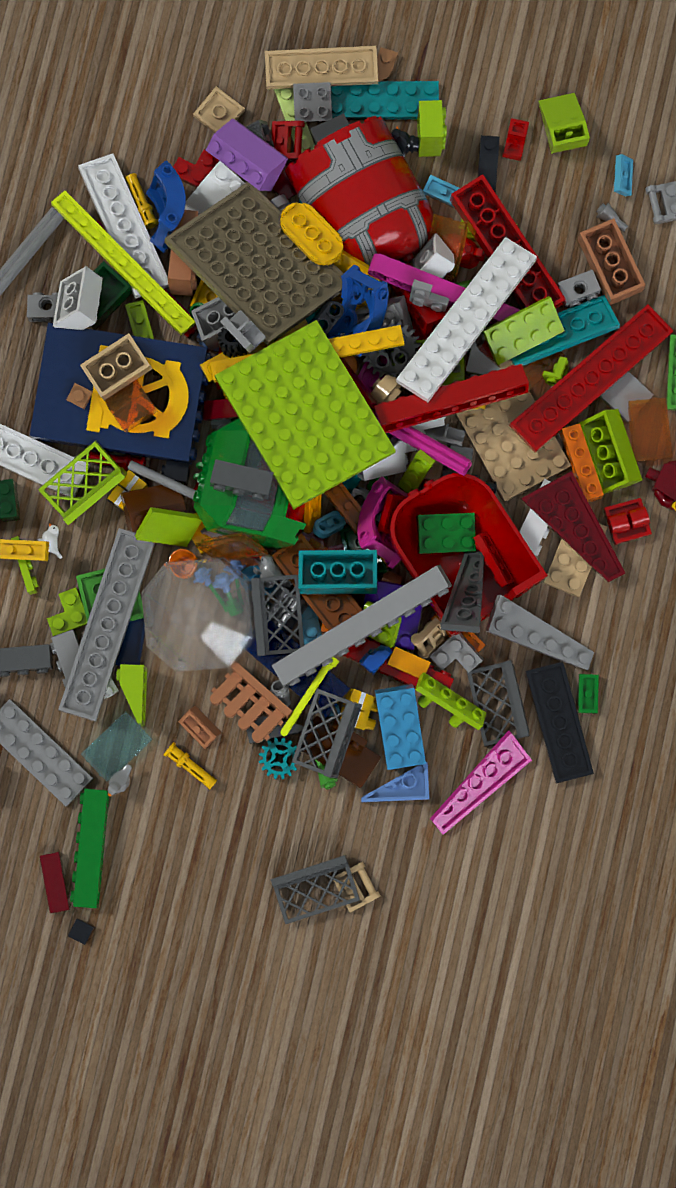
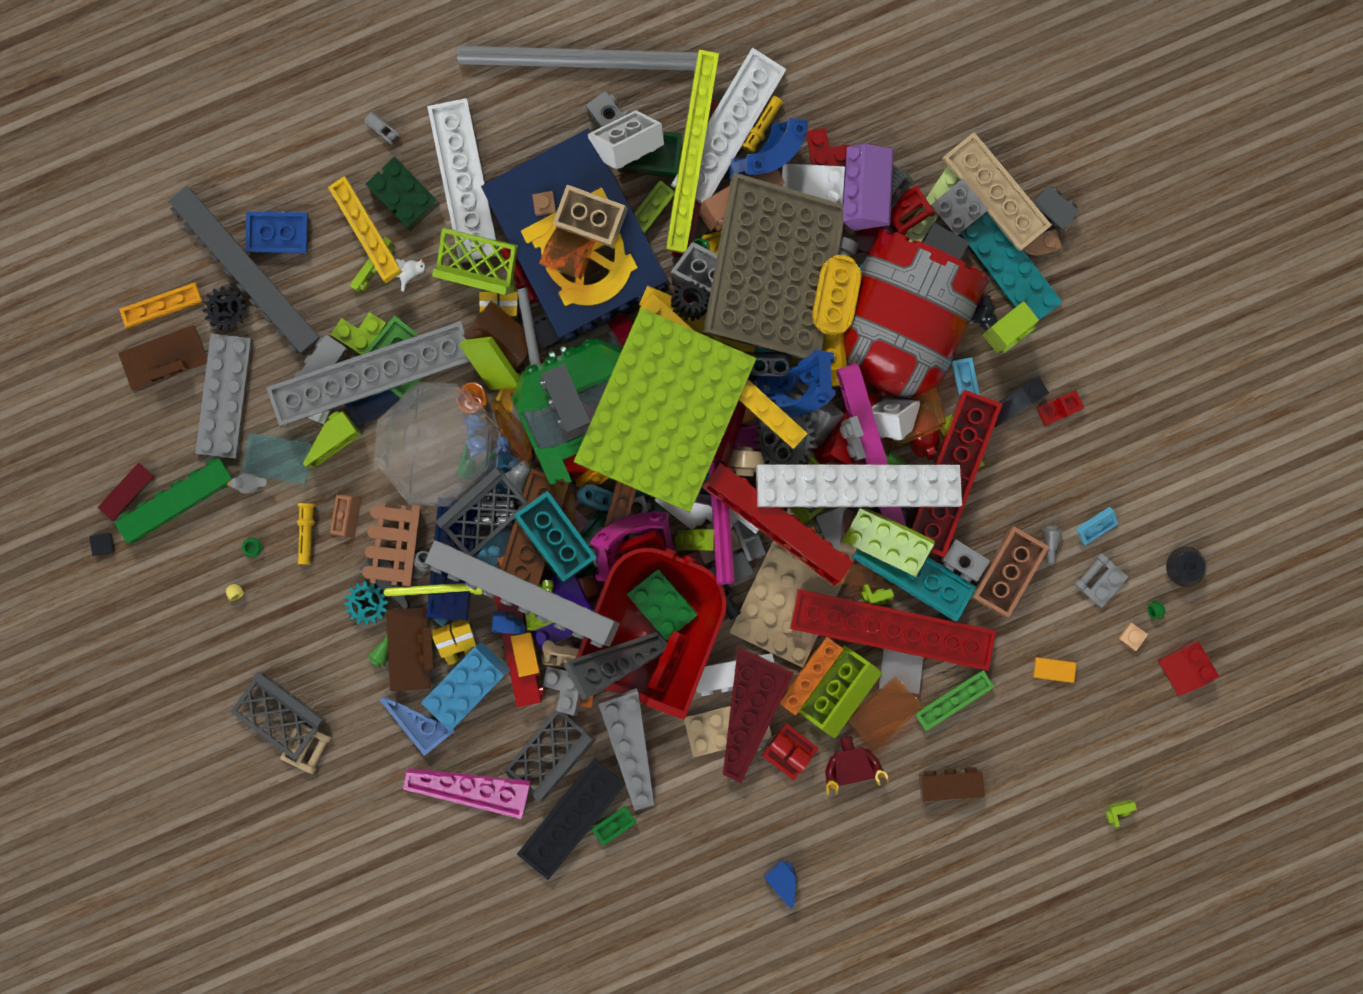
camera: 50 degrees right, 5 degrees up
(170, 815) = (252, 547): none -> green plate
(195, 854) = (234, 592): none -> light yellow hinge
(218, 110) = (892, 131): tan plate -> none
(244, 331) = (699, 302): light grey panel -> none
(342, 734) = (413, 646): dark grey fence -> none
(365, 34) = (1056, 208): none -> dark grey brick
(449, 700) = (518, 722): lime plate -> none
(564, 123) = (1106, 439): lime slope -> none

